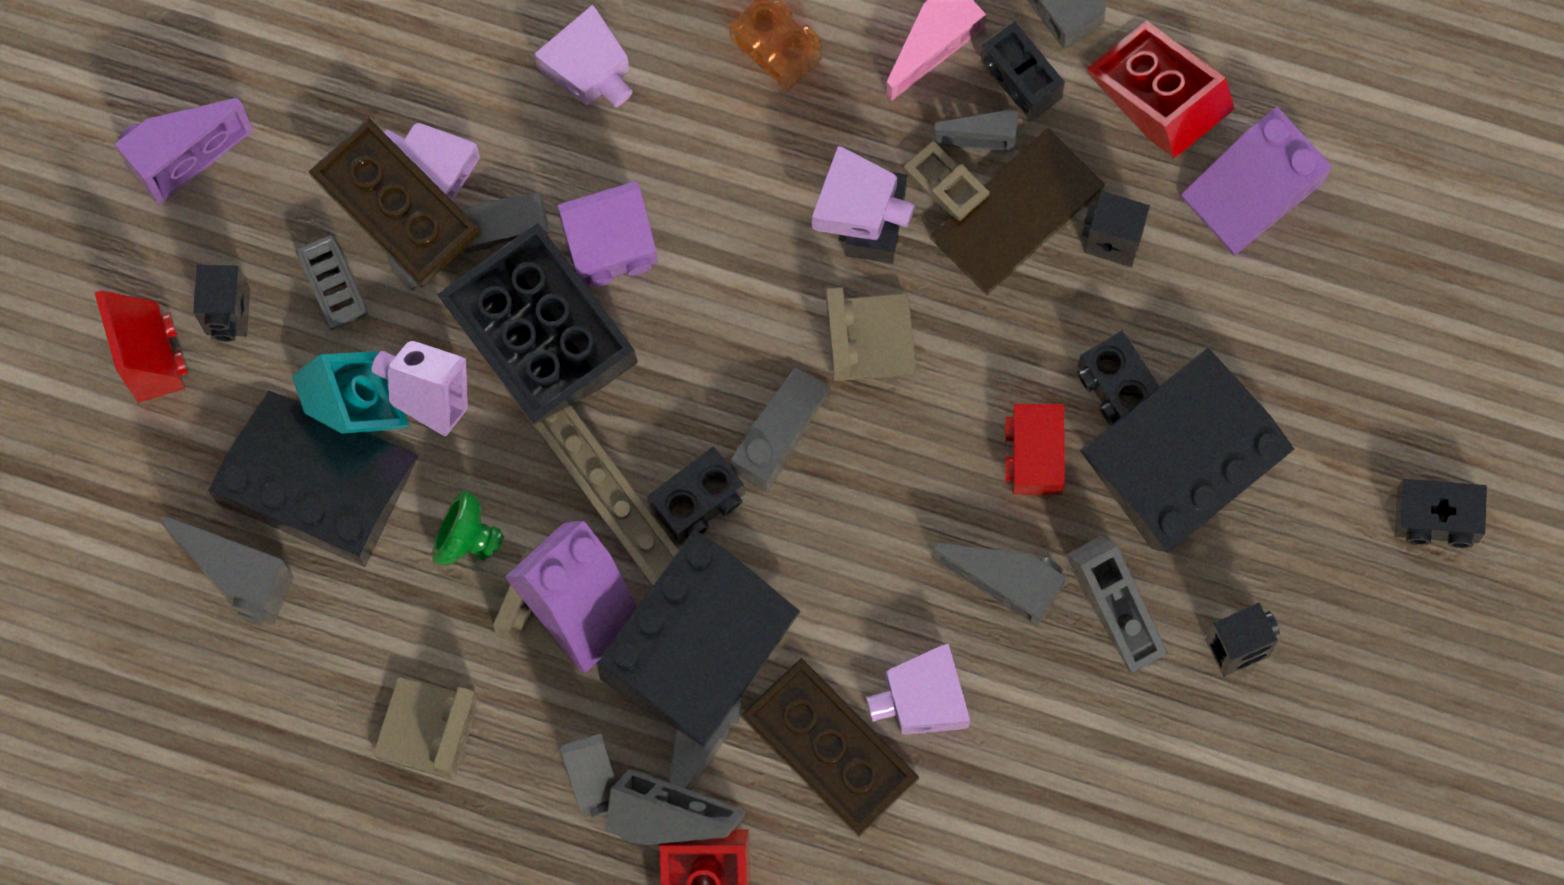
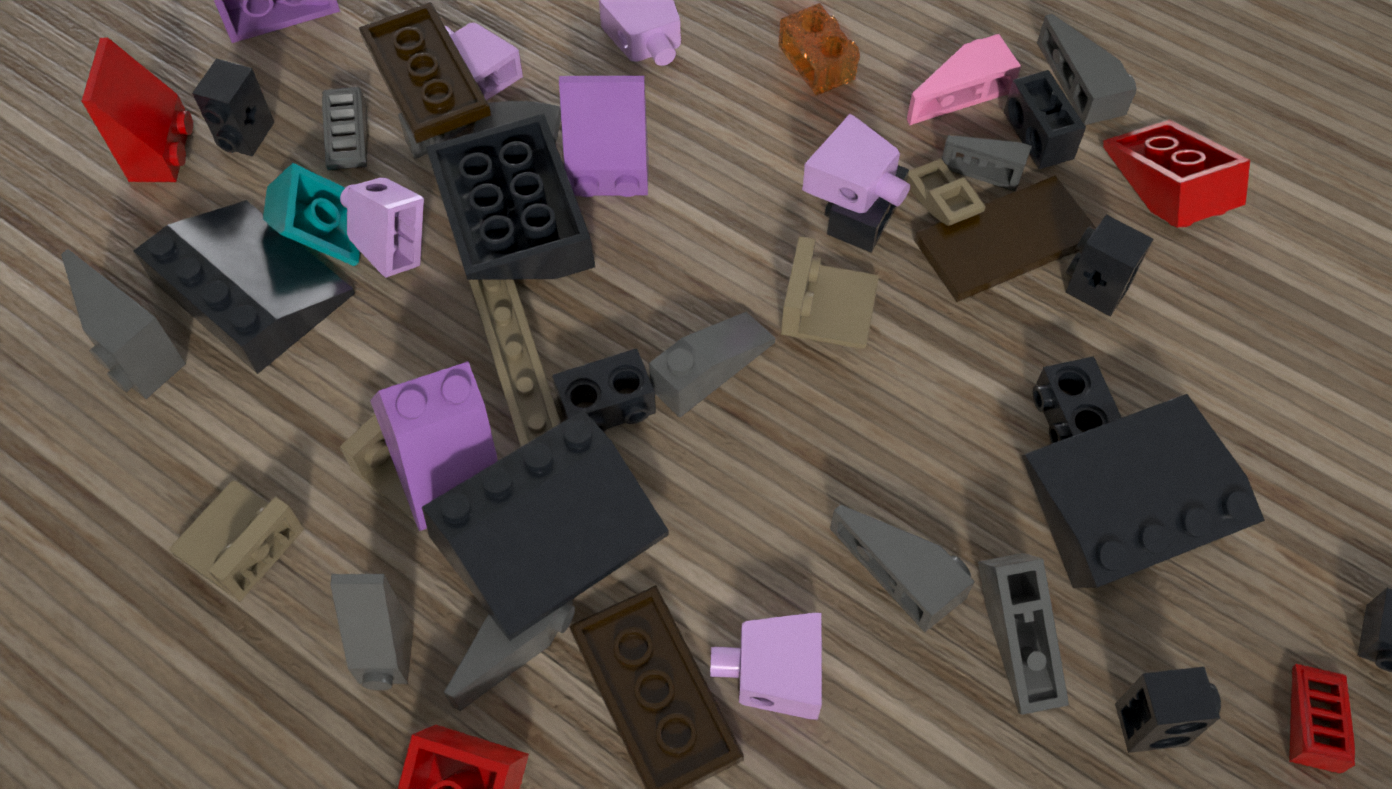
camera: 15 degrees right, 15 degrees down
(464, 532) = (359, 361): green hair -> none
(659, 812) = (428, 696): dark grey slope -> none
(1037, 449) = (973, 450): red brick -> none
(1257, 181) = (1261, 268): medium lavender slope -> none
(1369, 634) = (1340, 753): none -> red slope

